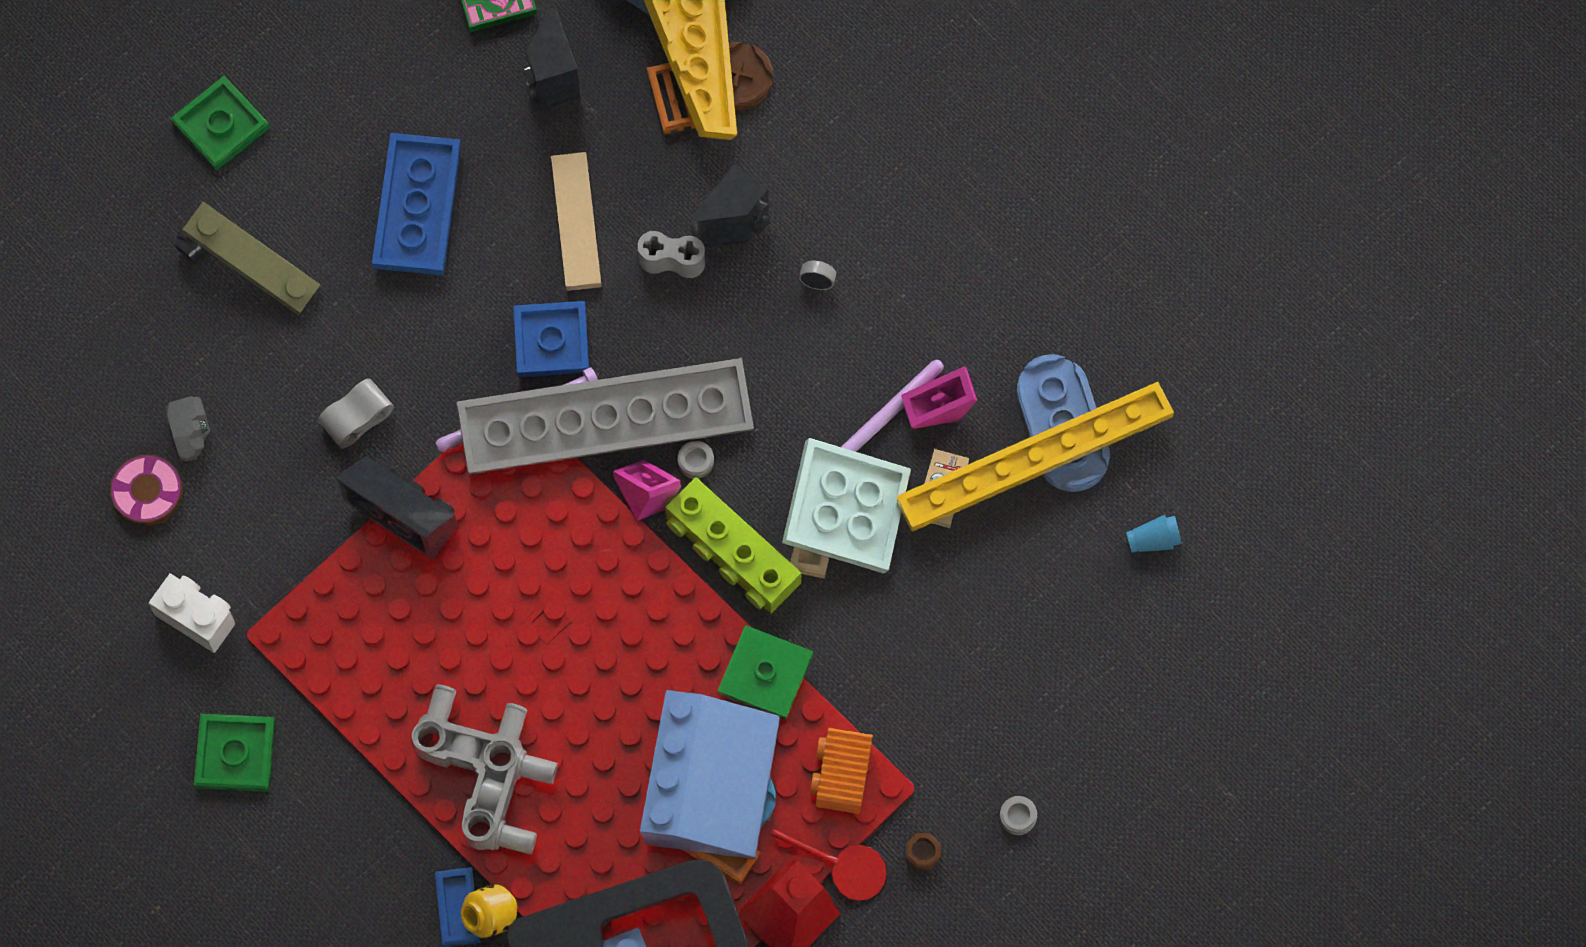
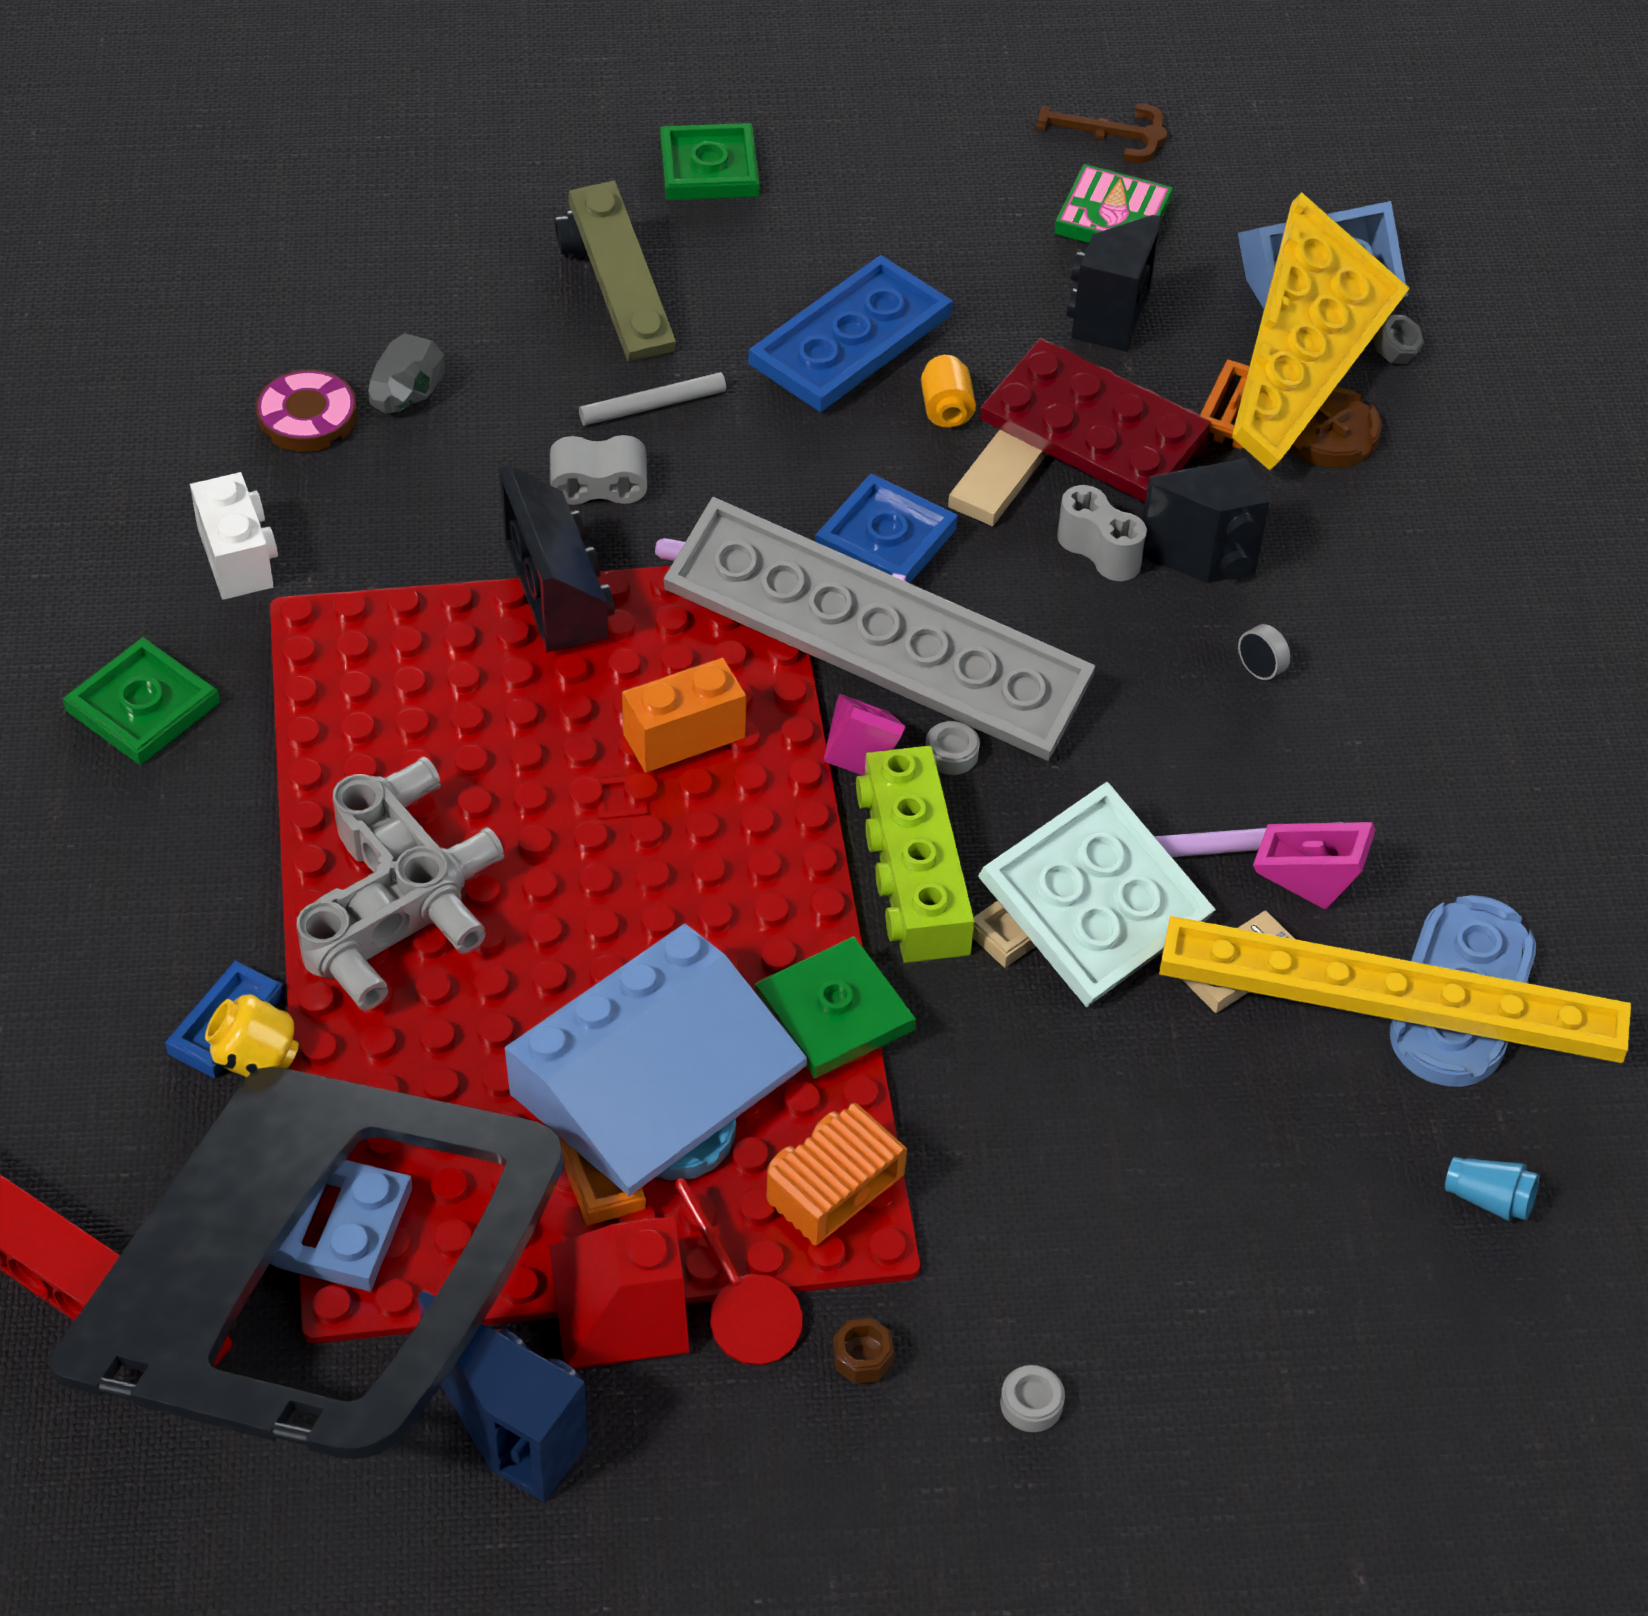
camera: 35 degrees right, 20 degrees down
(339, 335) = (652, 399): none -> light grey bar
(507, 210) = (947, 391): none -> light orange brick
(550, 553) = (684, 714): none -> orange brick
(611, 174) = (1095, 419): none -> dark red bracket

